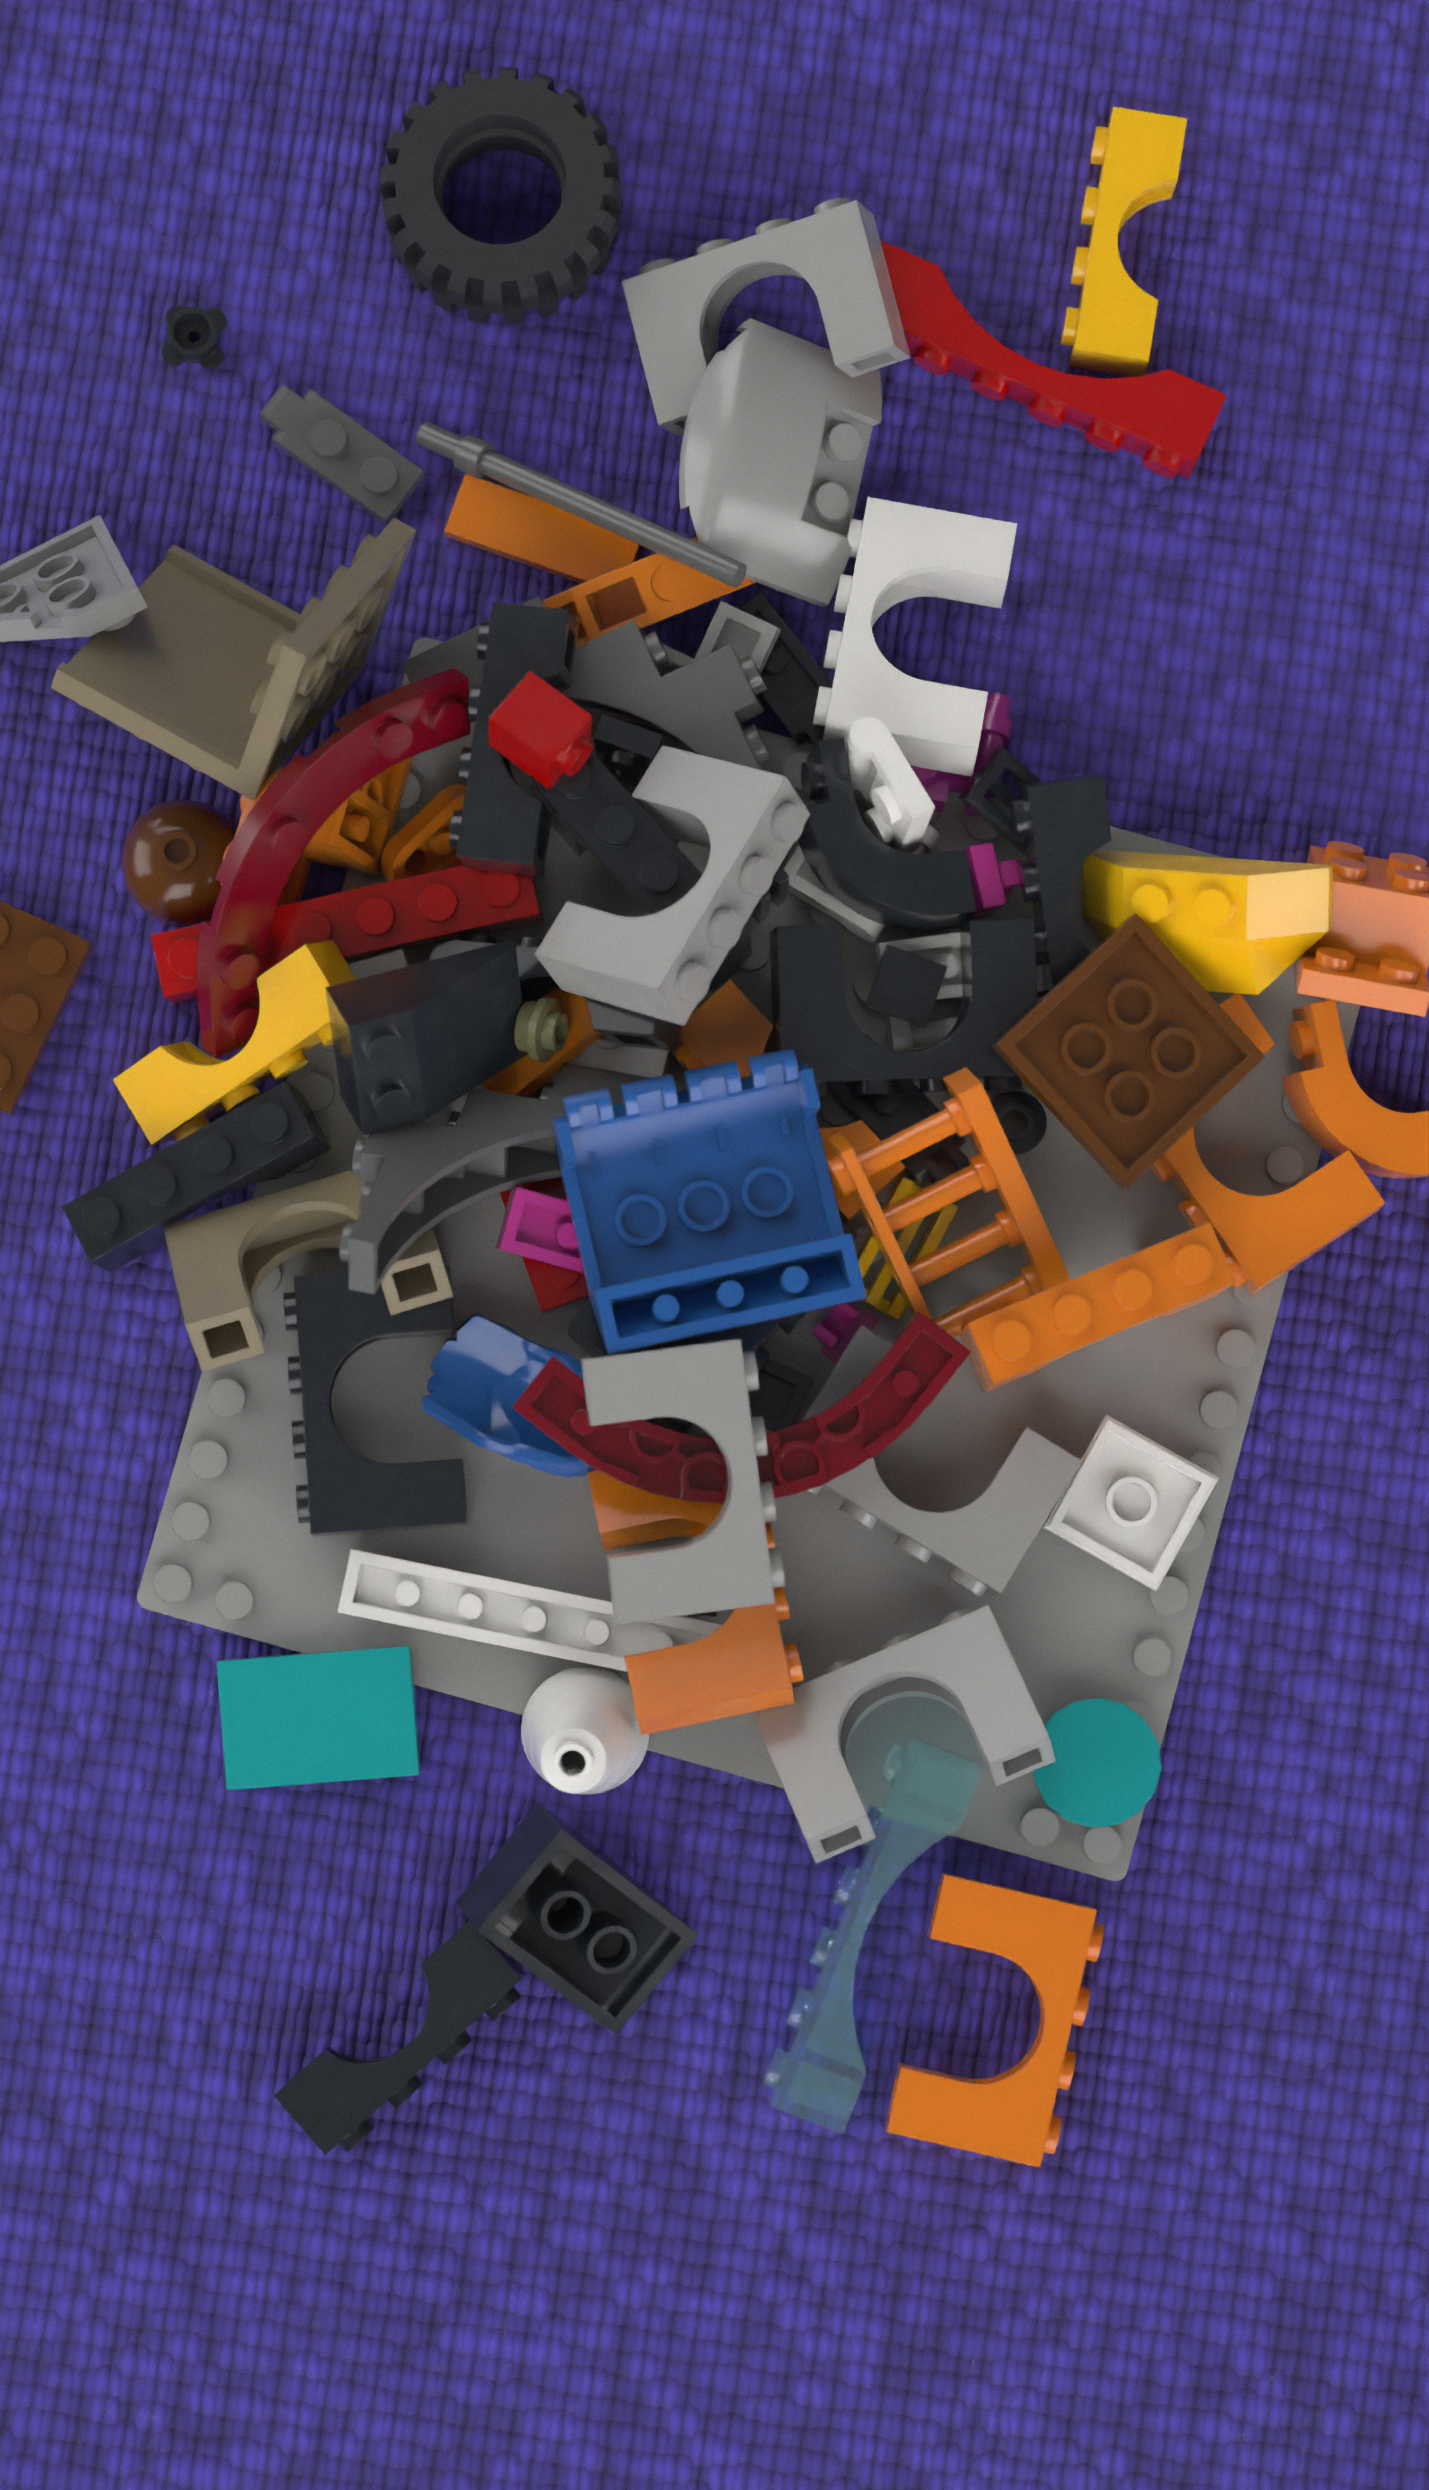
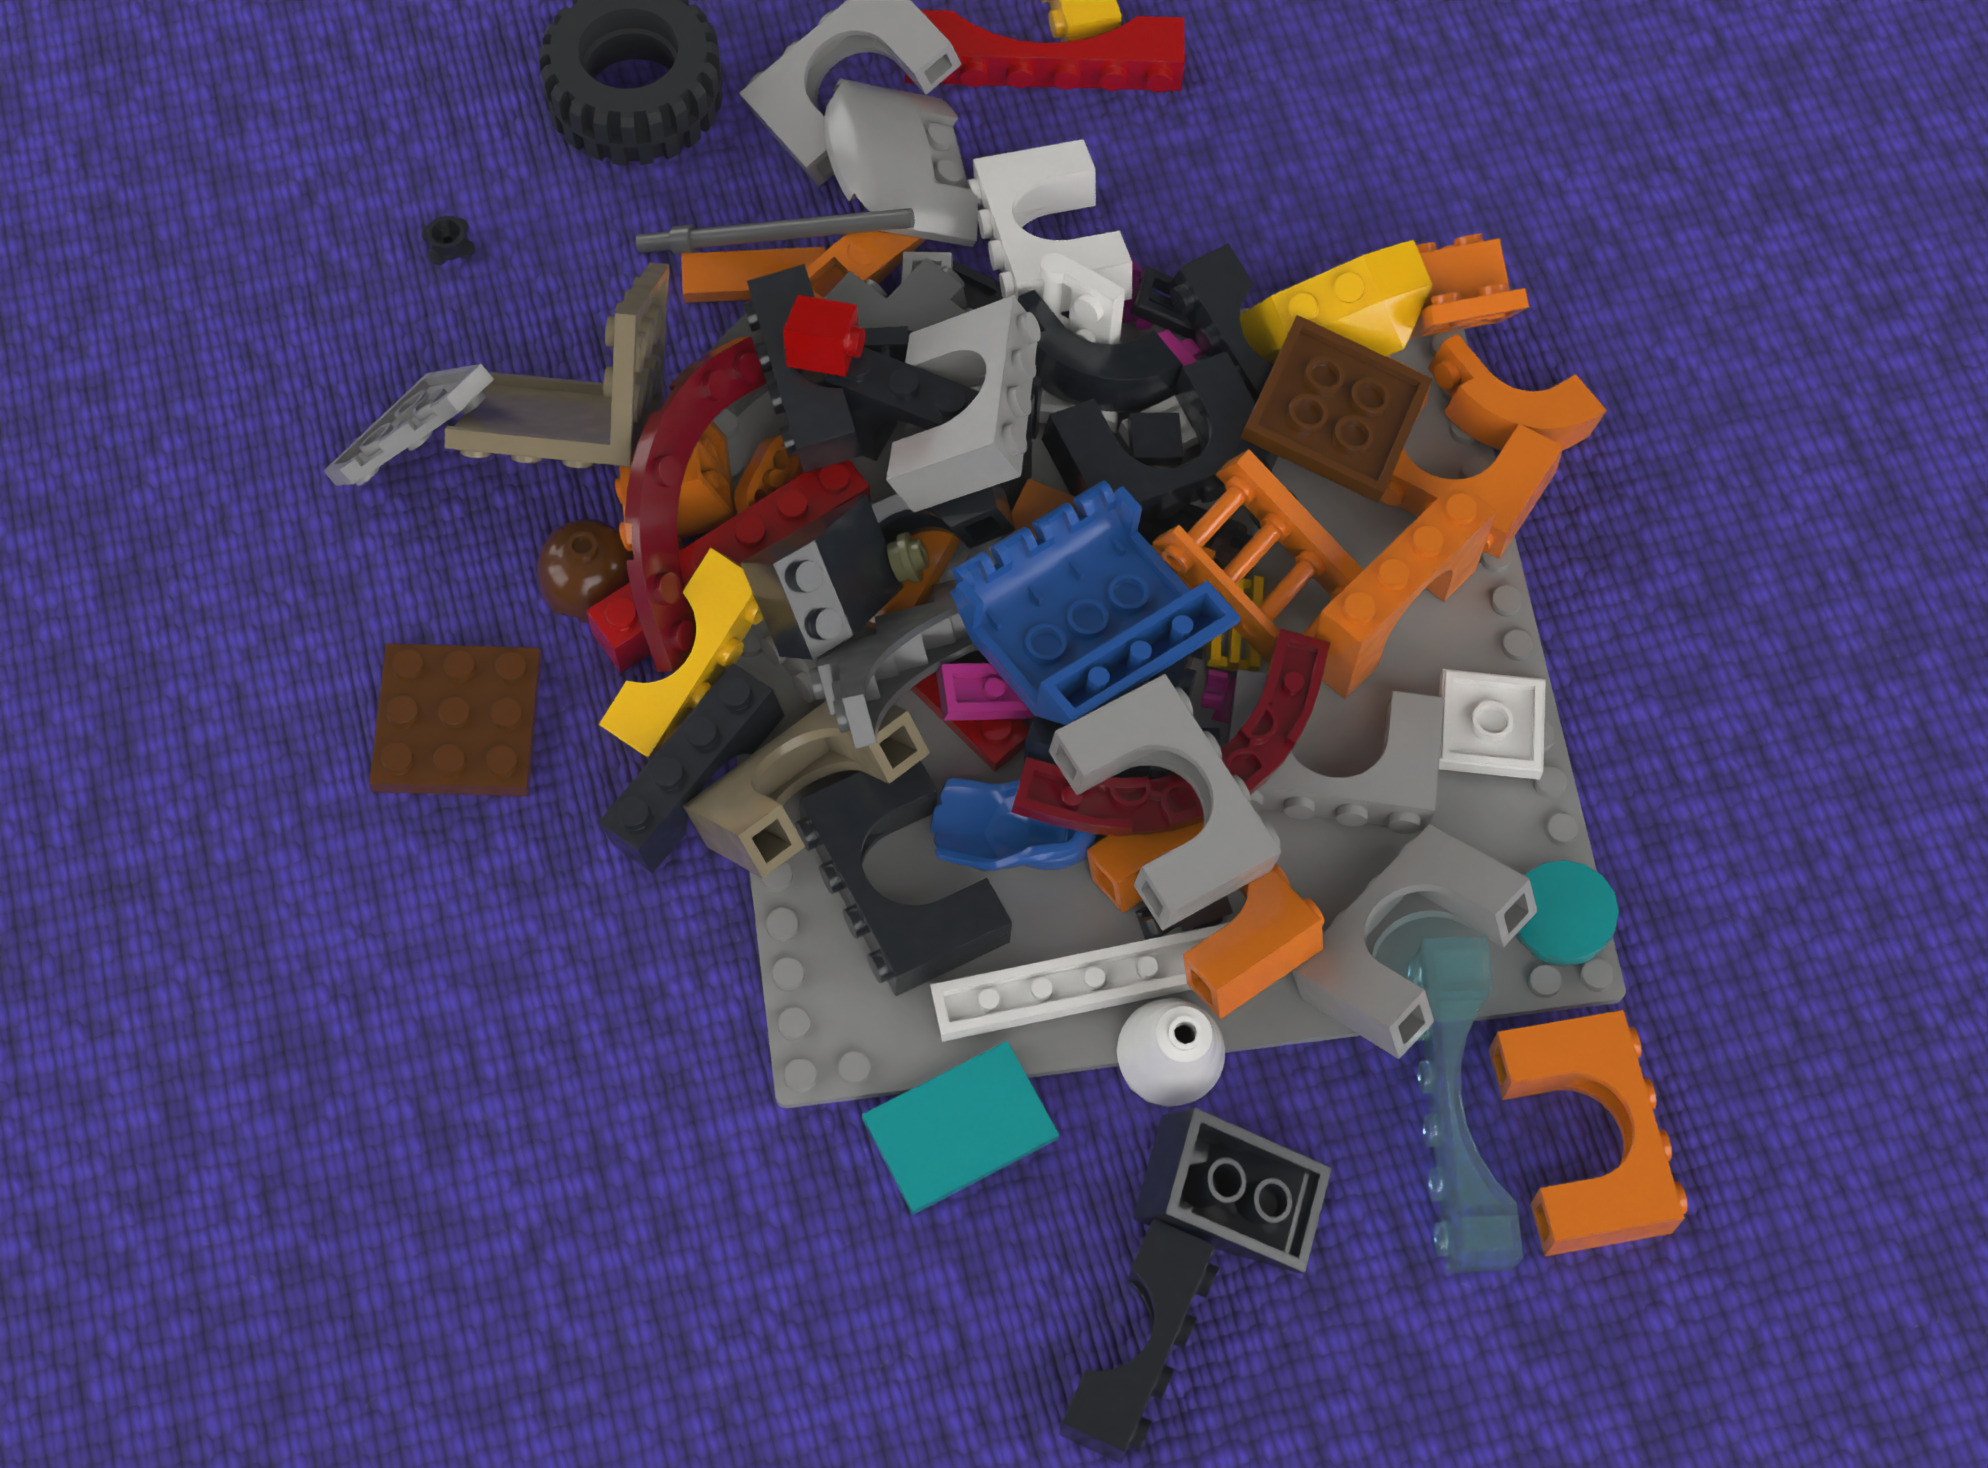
camera: 25 degrees left, 20 degrees down
(341, 452) = (579, 272): dark grey hinge -> none

